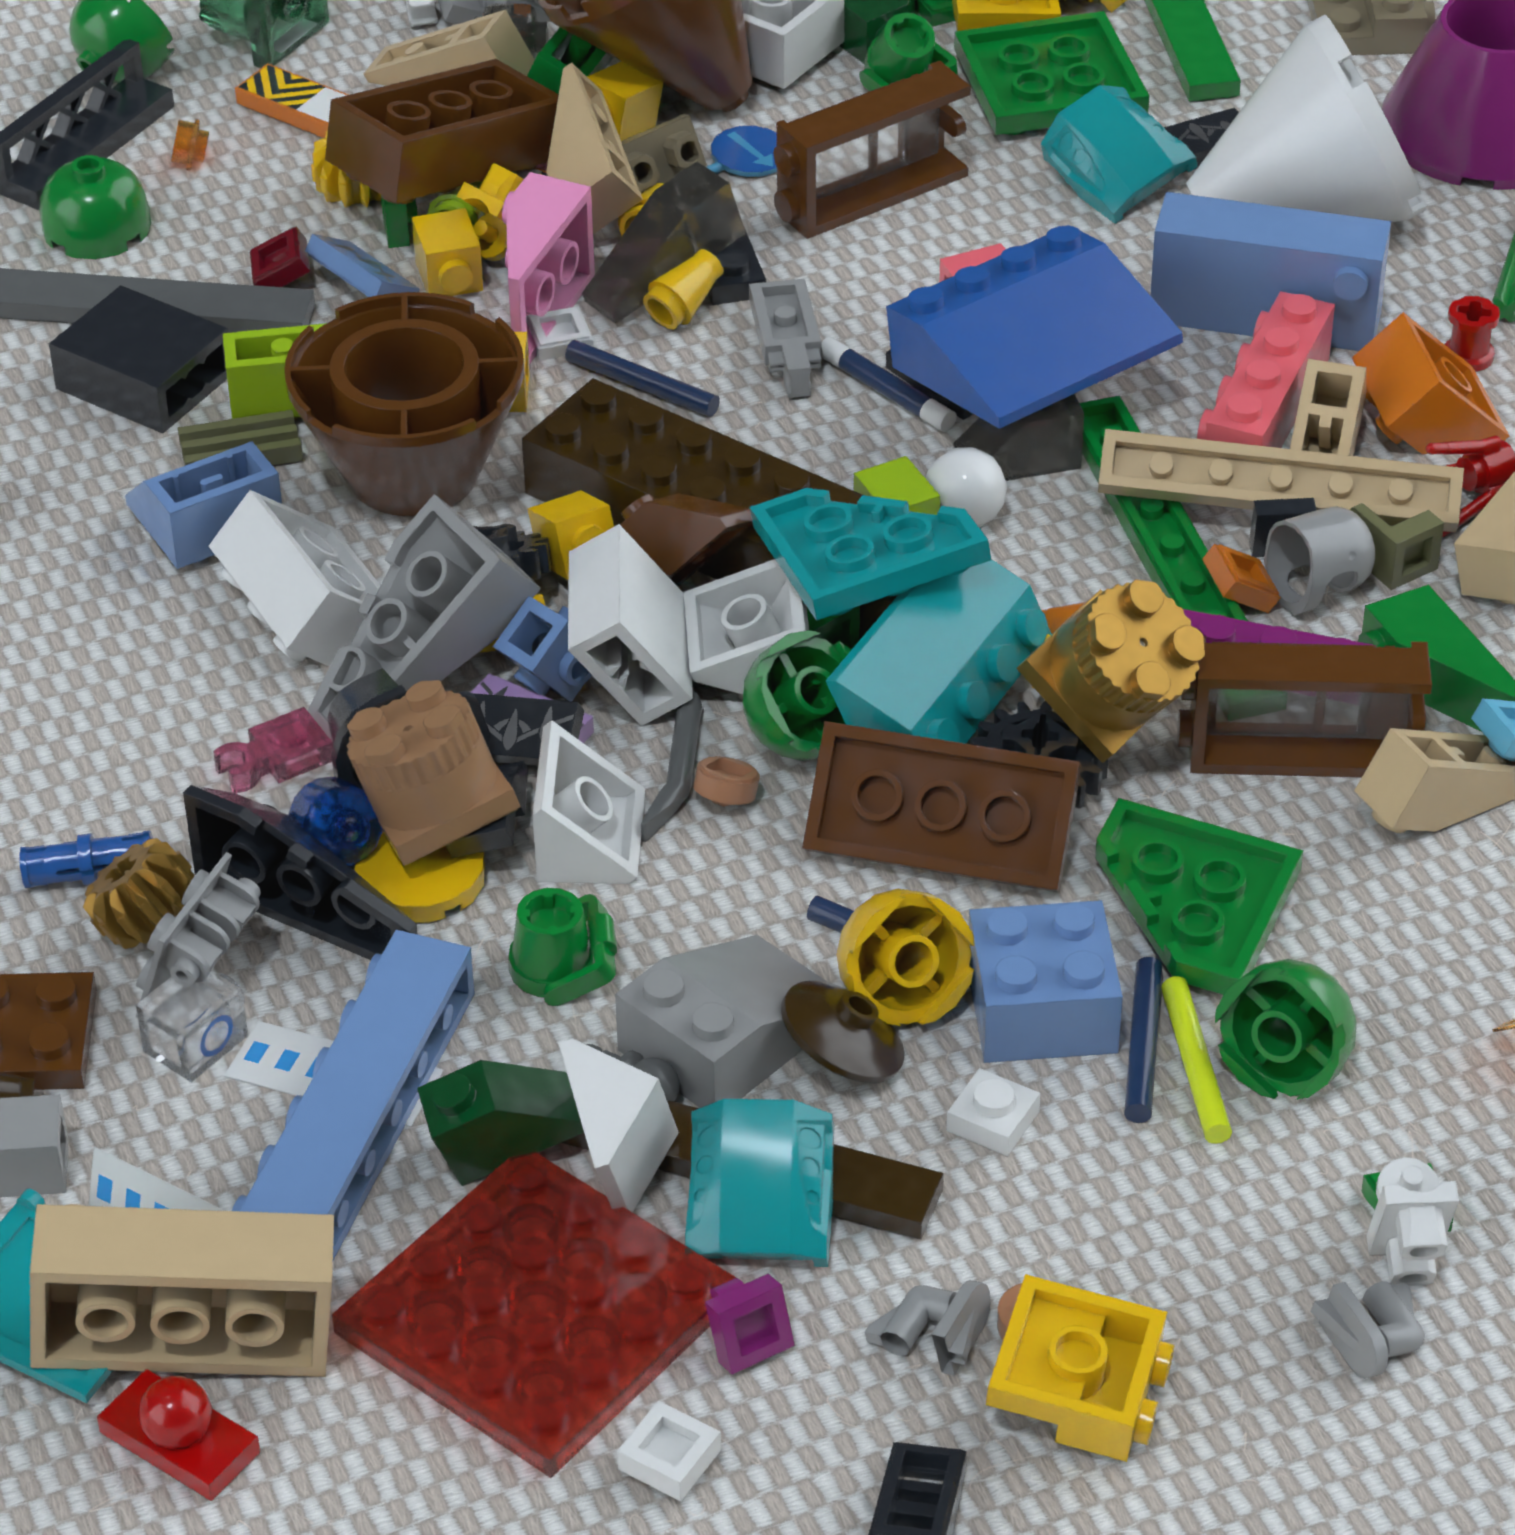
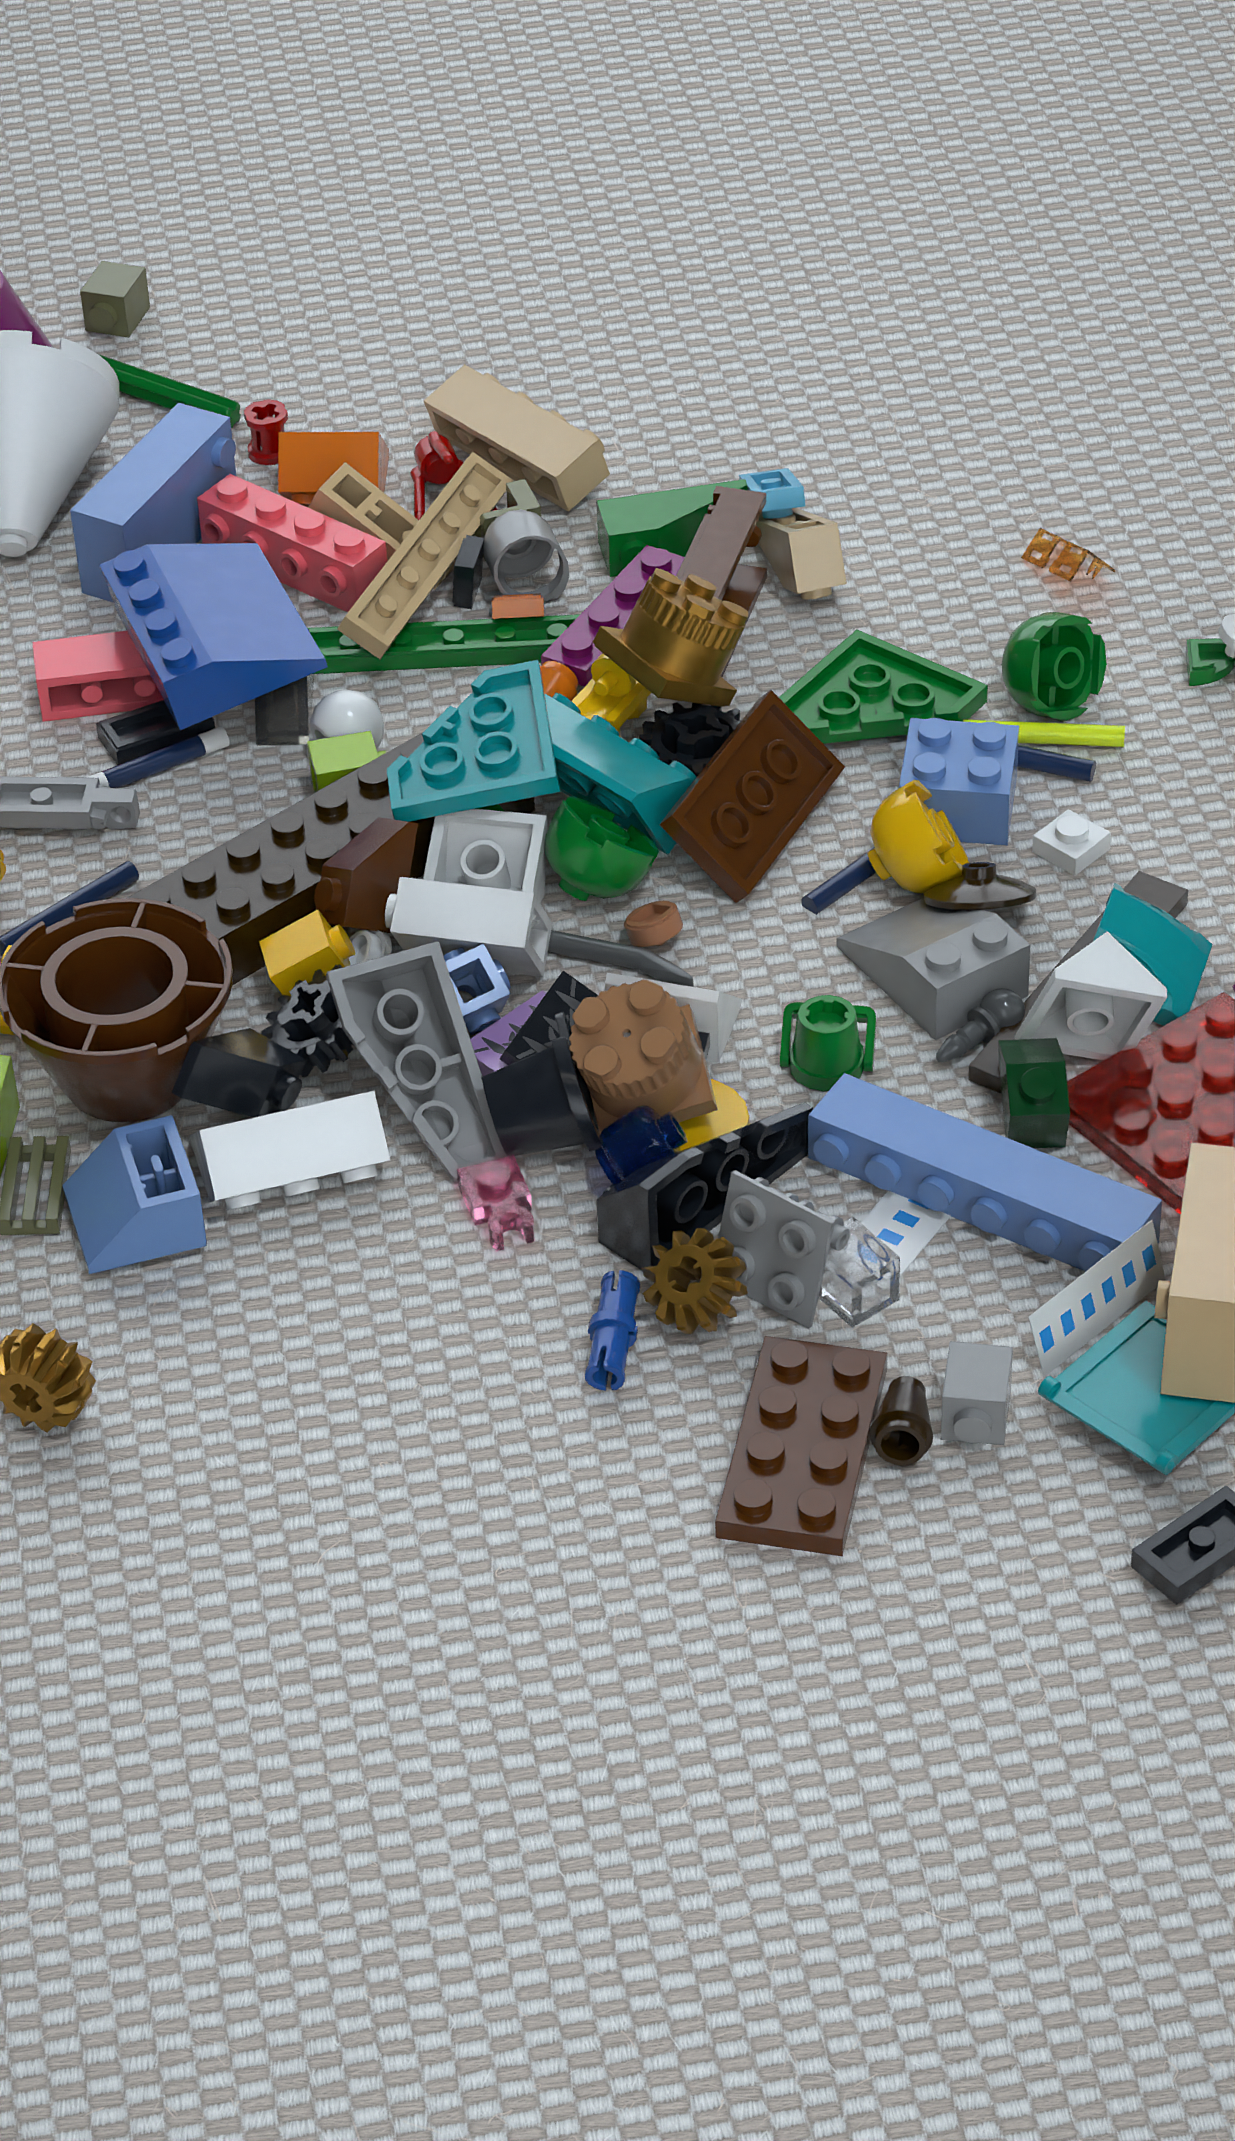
camera: 75 degrees left, 0 degrees up
(365, 508) = (240, 1074): none -> black slope

